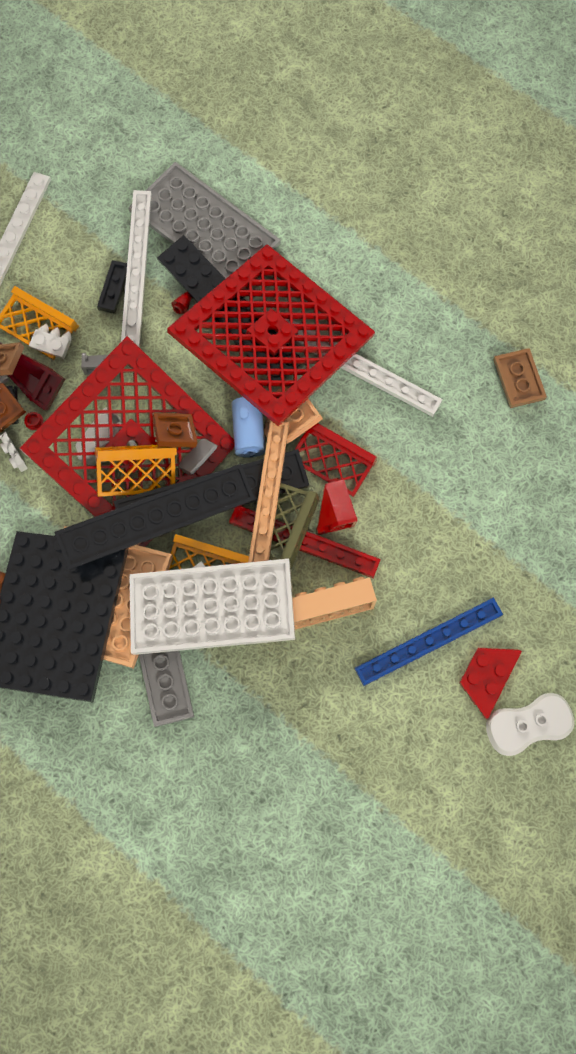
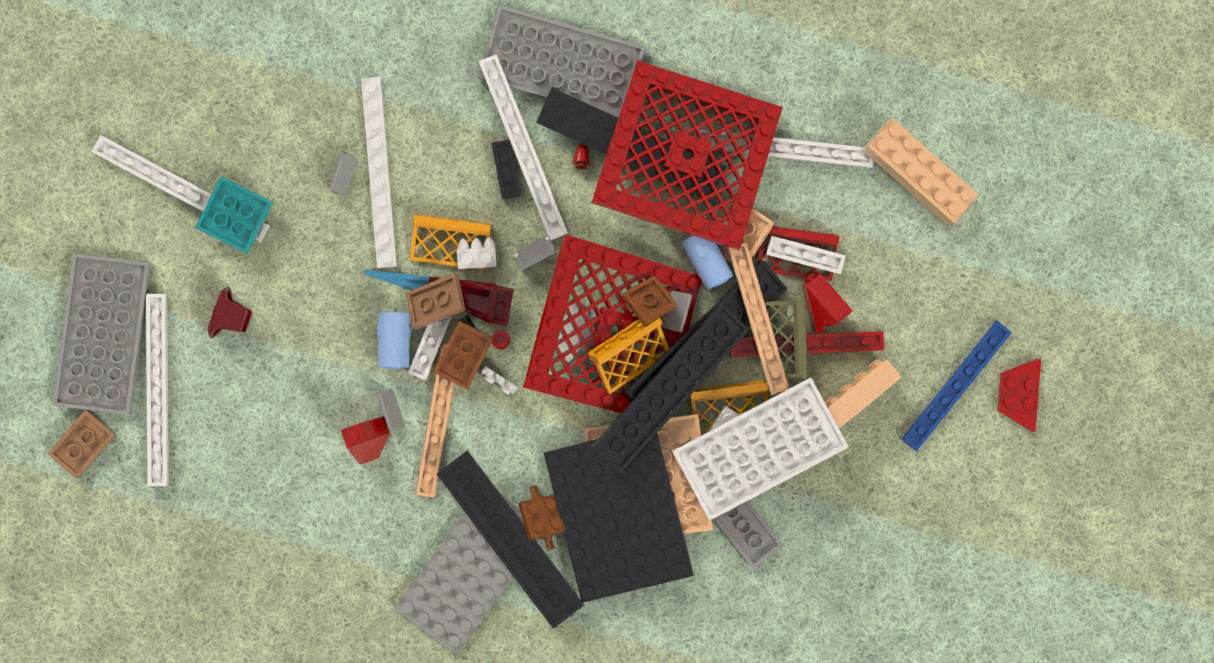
camera: 30 degrees left, 15 degrees up
(339, 460) = (805, 254): none -> white plate
(475, 434) = (920, 172): none -> light nougat brick
(515, 729) = (1084, 408): white plate -> none
(519, 378) = (937, 92): medium nougat plate -> none

